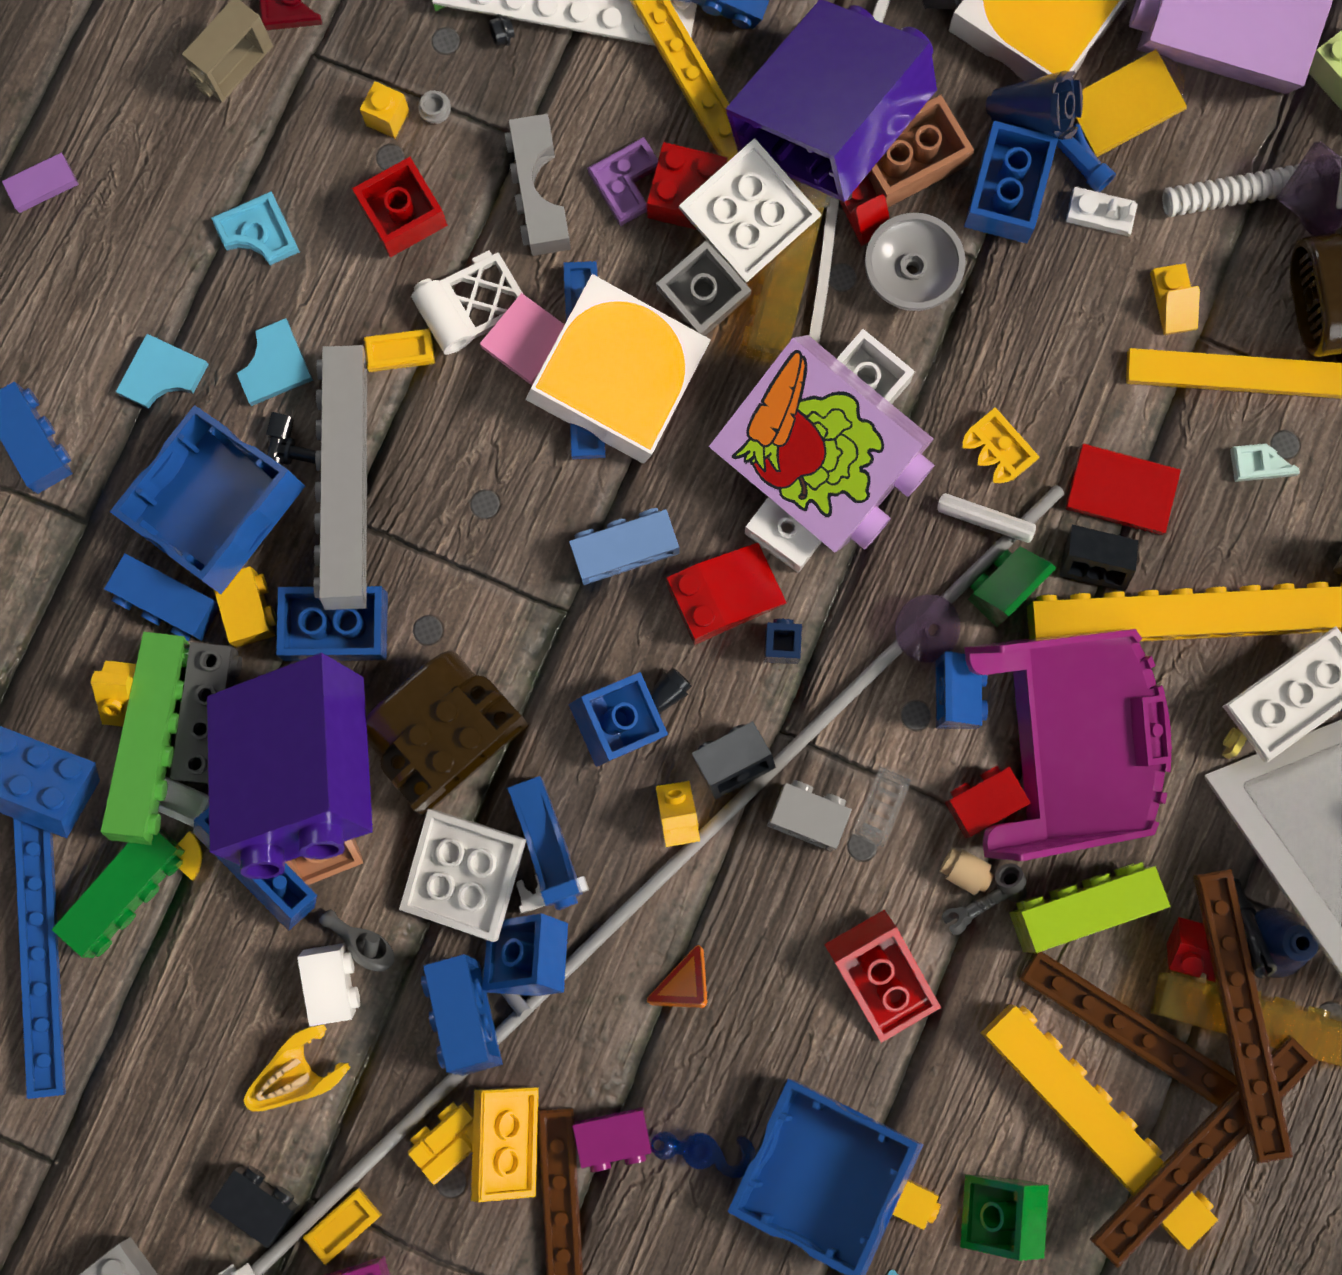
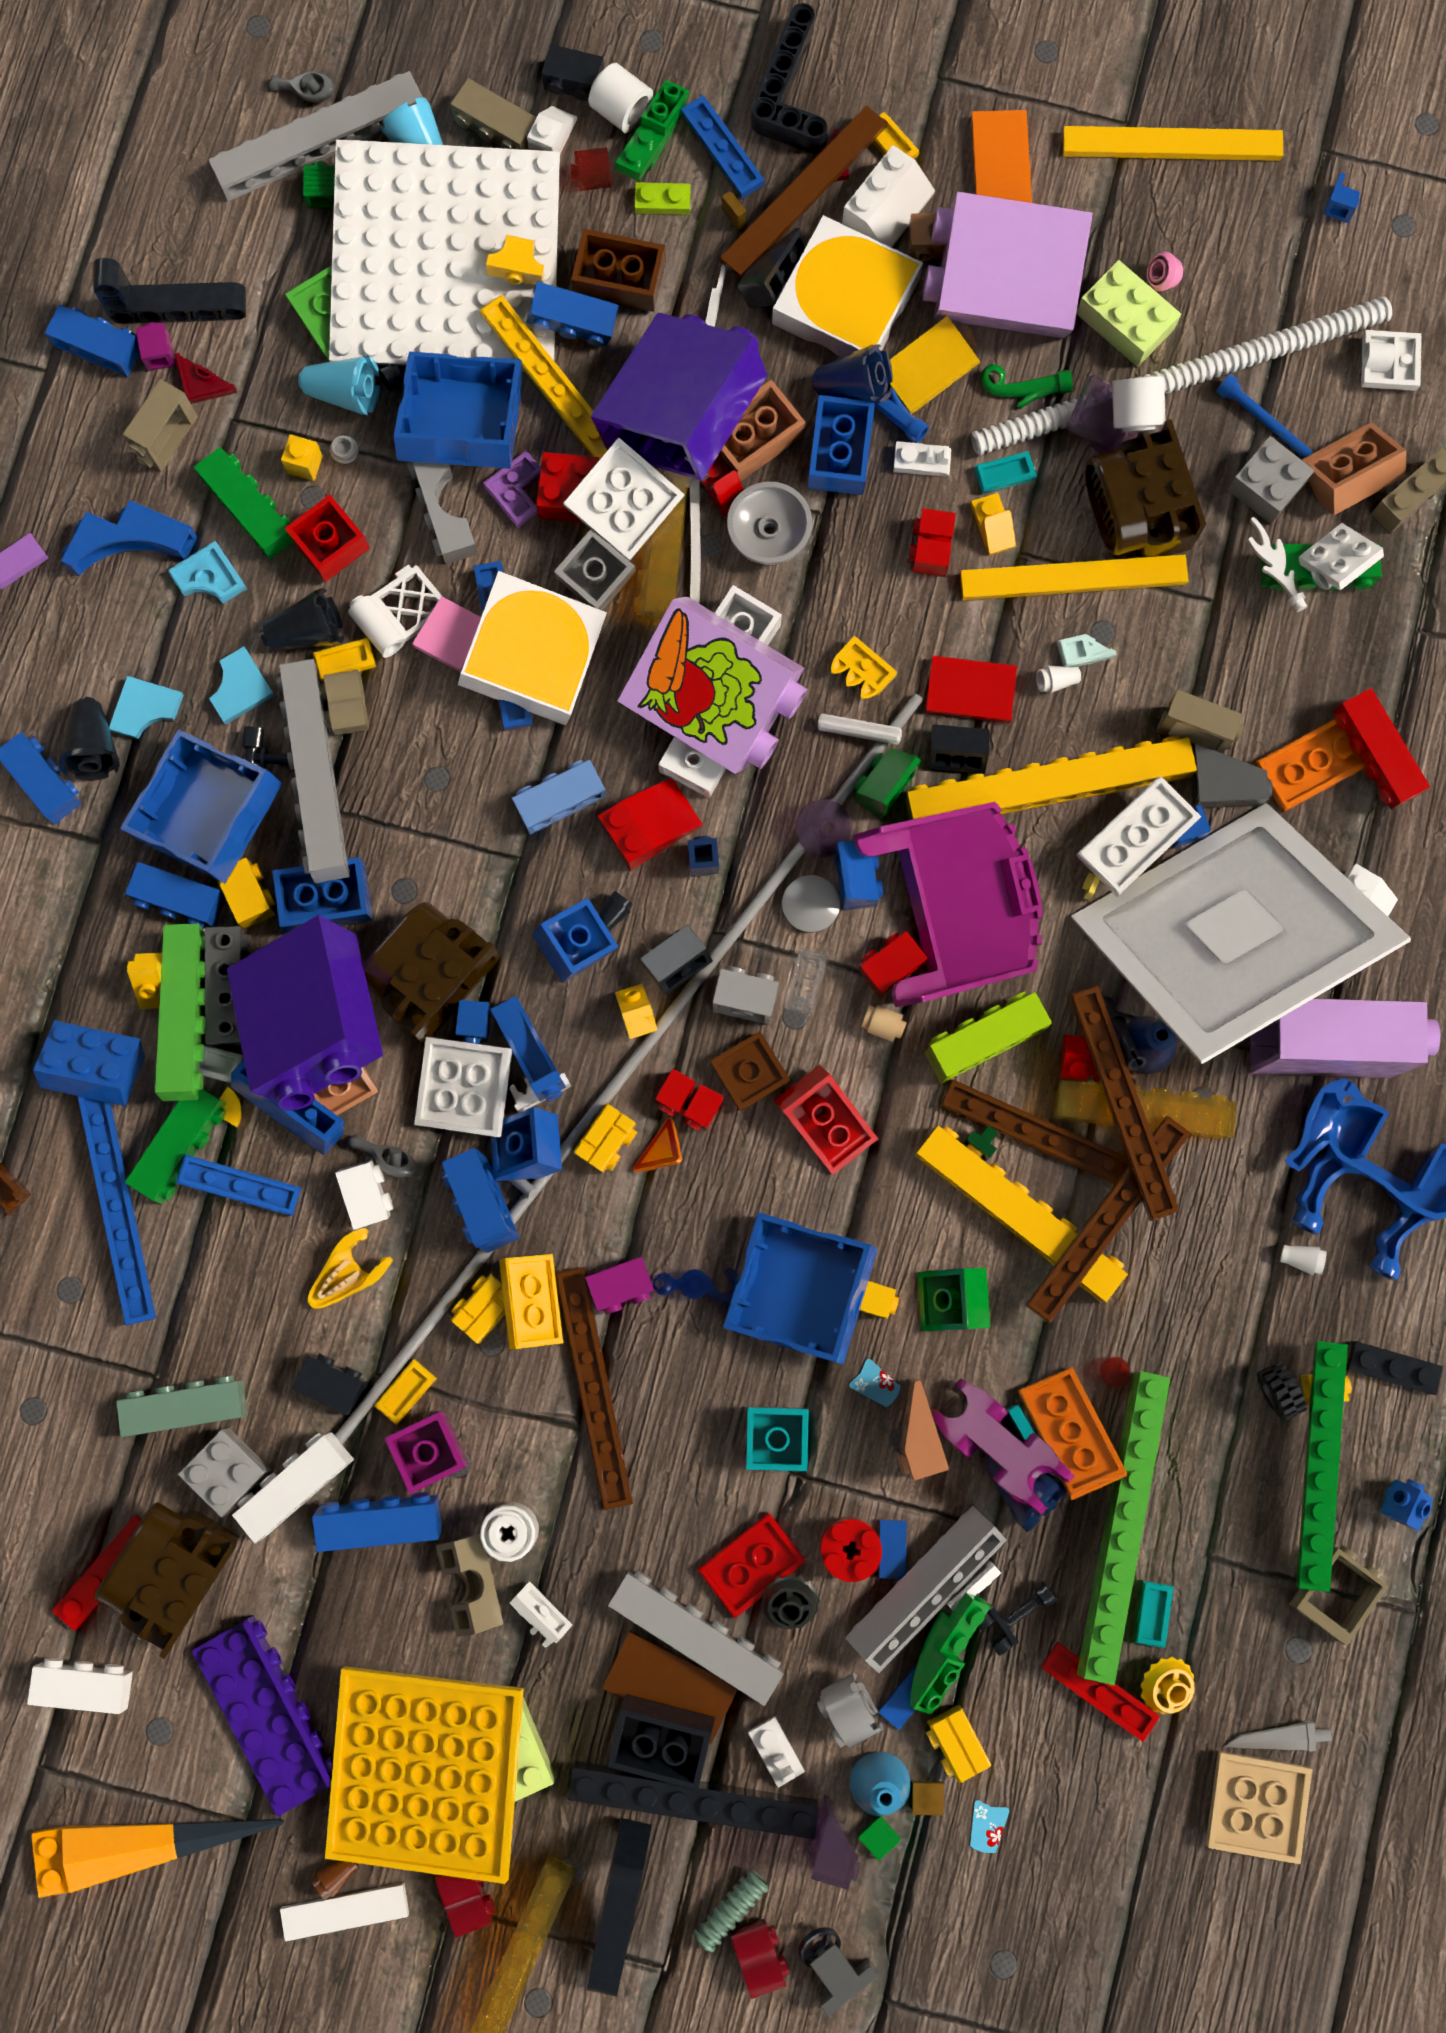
camera: 10 degrees left, 0 degrees up
(77, 1207) = (181, 1408): none -> sand green brick
(89, 405) = (88, 743): none -> black cone
(182, 166) = (136, 530): none -> blue arch
(183, 951) = (238, 1185): none -> blue tile
(311, 151) = (244, 502): none -> green brick
(359, 303) = (304, 624): none -> black cone
(392, 400) = (345, 702): none -> dark tan brick
(445, 31) = (343, 383): none -> medium azure cone
(485, 798) = (473, 1021): none -> blue brick
(573, 80) = (459, 410): none -> blue tile
(620, 960) = (606, 1138): none -> yellow brick
(737, 942) = (675, 1095): none -> red piece
(801, 905) = (750, 1071): none -> reddish brown plate
(900, 715) = (811, 903): none -> light grey dish
(1010, 885) = (921, 1029): dark grey brick -> none
(1065, 1031) = (983, 1141): none -> dark green tile
(1101, 313) = (933, 542): none -> red piece
(1196, 240) = (1005, 472): none -> teal tile
(1223, 491) = (1056, 678): none -> white cone
(1240, 148) = (1031, 389): none -> green plant

